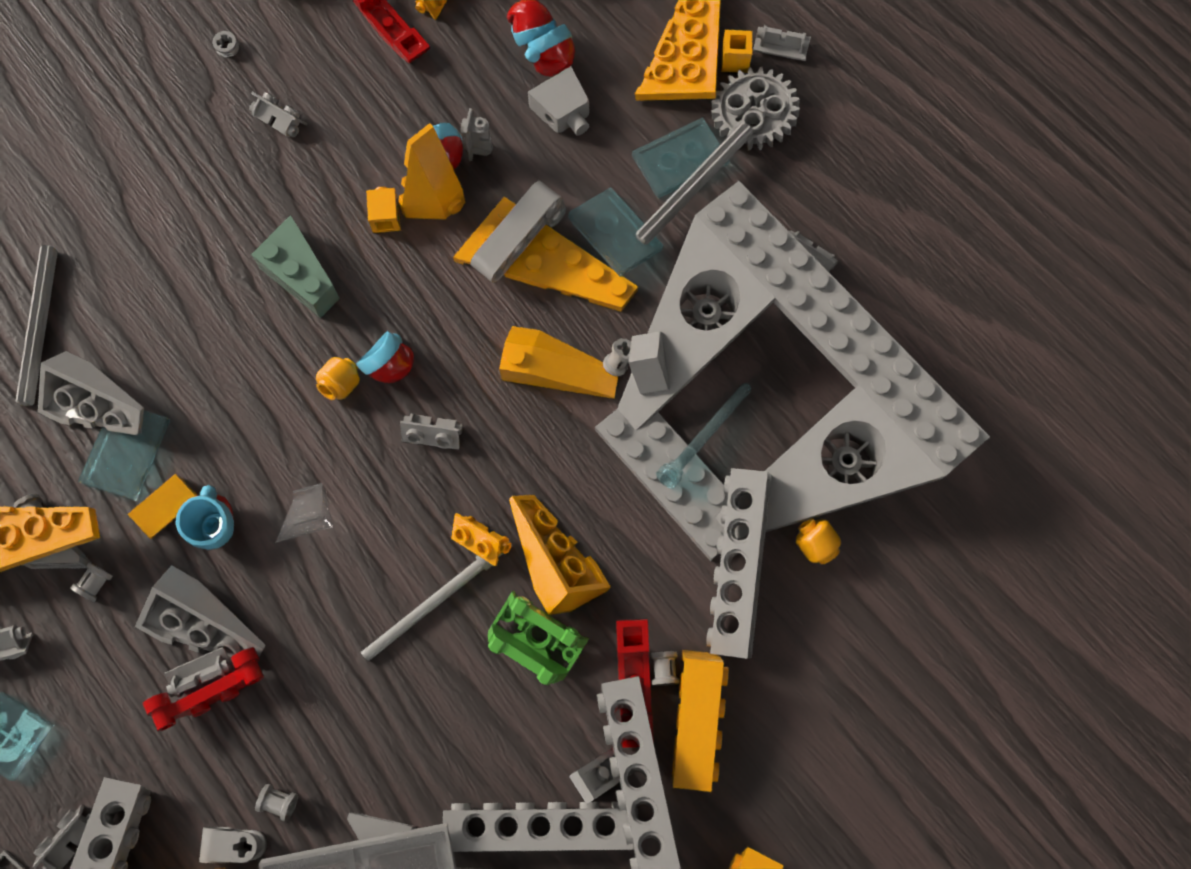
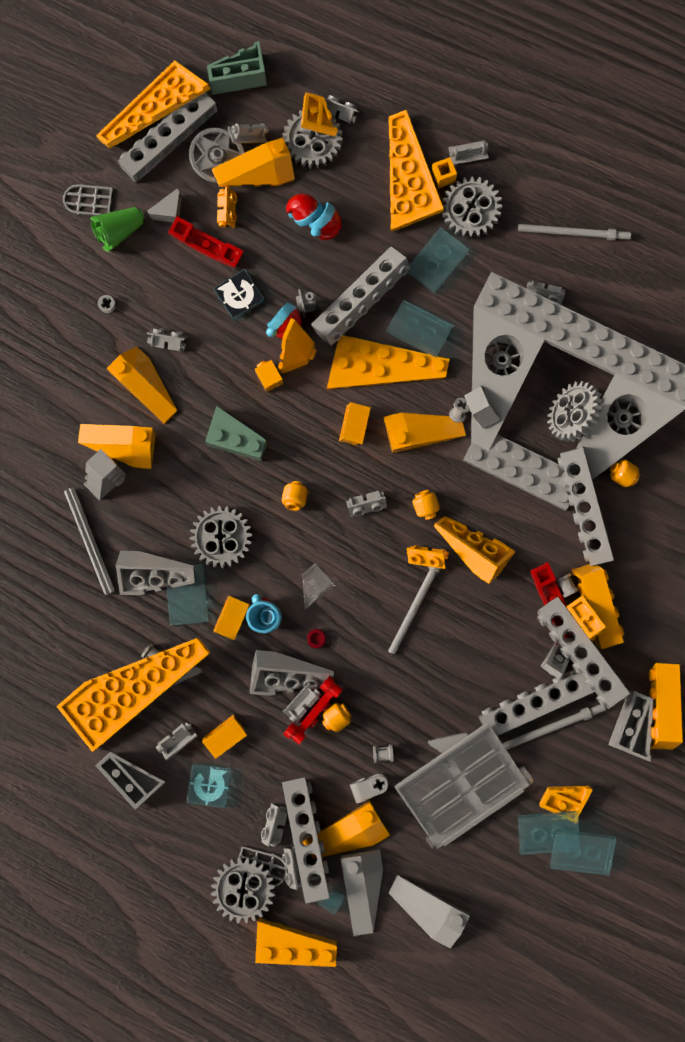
camera: 20 degrees left, 10 degrees up
(64, 672) = (224, 736): none -> light orange hinge
(91, 582) = (211, 679): light grey bush -> none
(97, 238) = (102, 474): none -> light grey wedge
(151, 218) = (123, 443): none -> light orange wedge
(187, 383) = (238, 535): none -> light grey gear
(217, 147) = (140, 377): none -> light orange wedge
(236, 716) = (336, 717): none -> light orange head
(269, 589) = (316, 638): none -> dark red tile
(388, 359) = (318, 471): piece -> none
(398, 98) = (239, 294): none -> tile
(466, 317) = (354, 424): none -> light orange hinge
(513, 466) = (426, 504): none -> light orange head
(517, 230) = (362, 356): light grey beam -> none
(527, 650) = (486, 609): bright green piece -> none
(555, 158) = (370, 286): none -> light grey brick
(561, 102) = (347, 255): light grey torso -> none
(667, 728) = (586, 618): none -> light orange hinge
(671, 473) = (523, 469): clear light blue piece -> none
(694, 183) = (457, 276): light grey axle -> none
(780, 422) = (575, 411): none -> light grey gear
(932, 216) = (610, 234): none -> light grey bar

